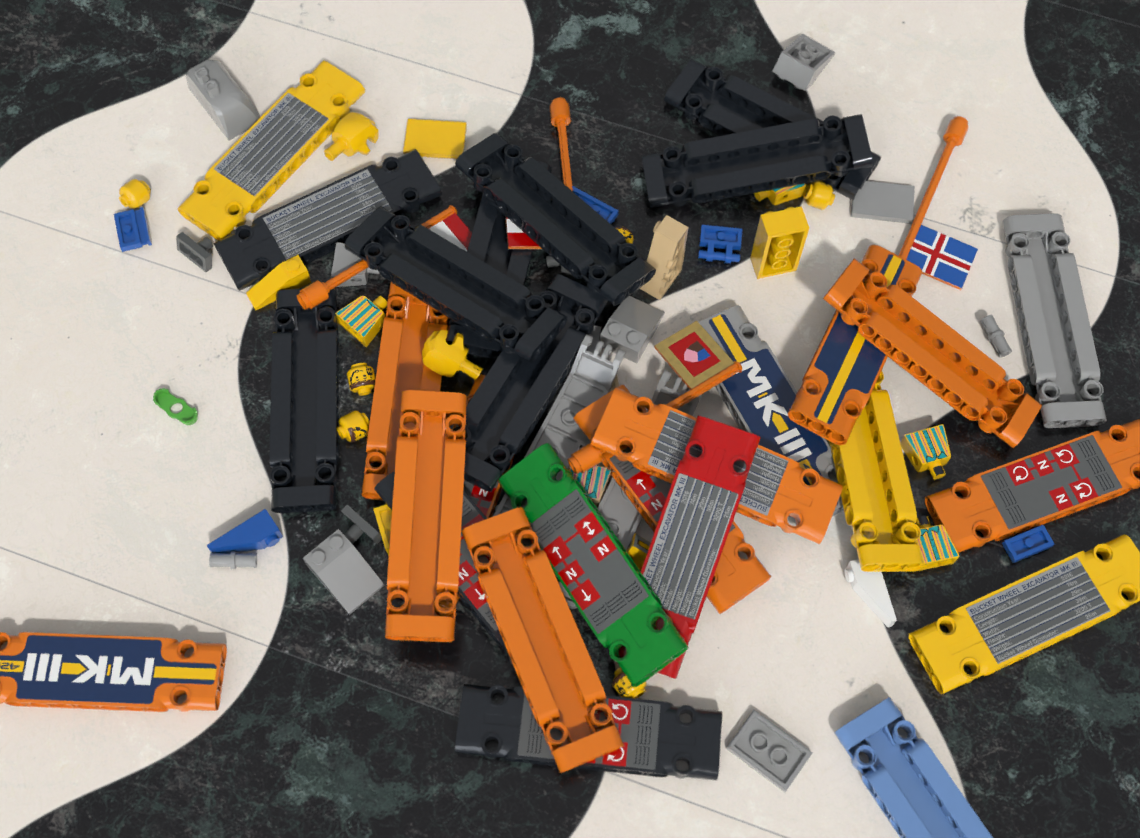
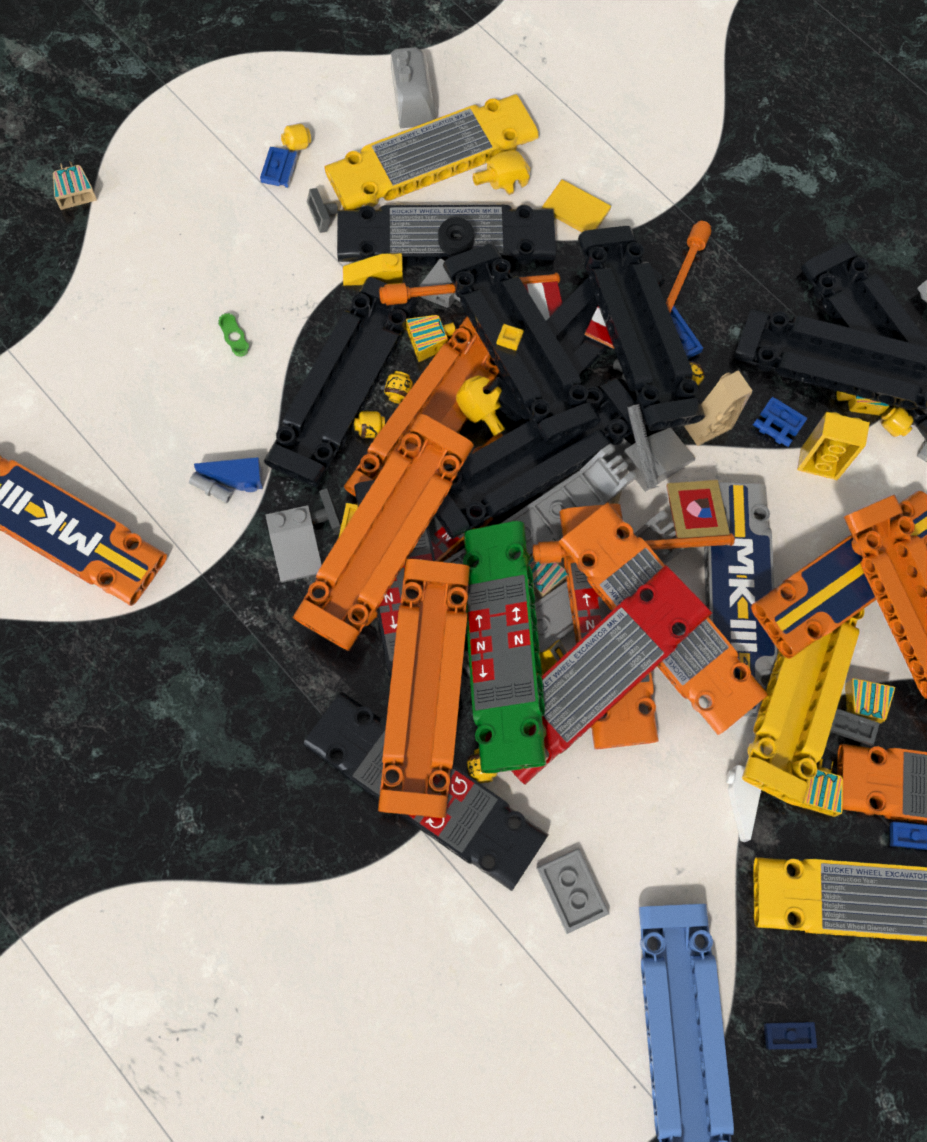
camera: 25 degrees right, 5 degrees up
(338, 205) = (455, 226): none -> black tyre
(445, 282) = (509, 337): none -> yellow tile
(616, 324) = (642, 447): none -> light grey axle
(929, 476) = (854, 727): none -> dark grey tile
(1021, 771) = (790, 1035): none -> dark blue plate

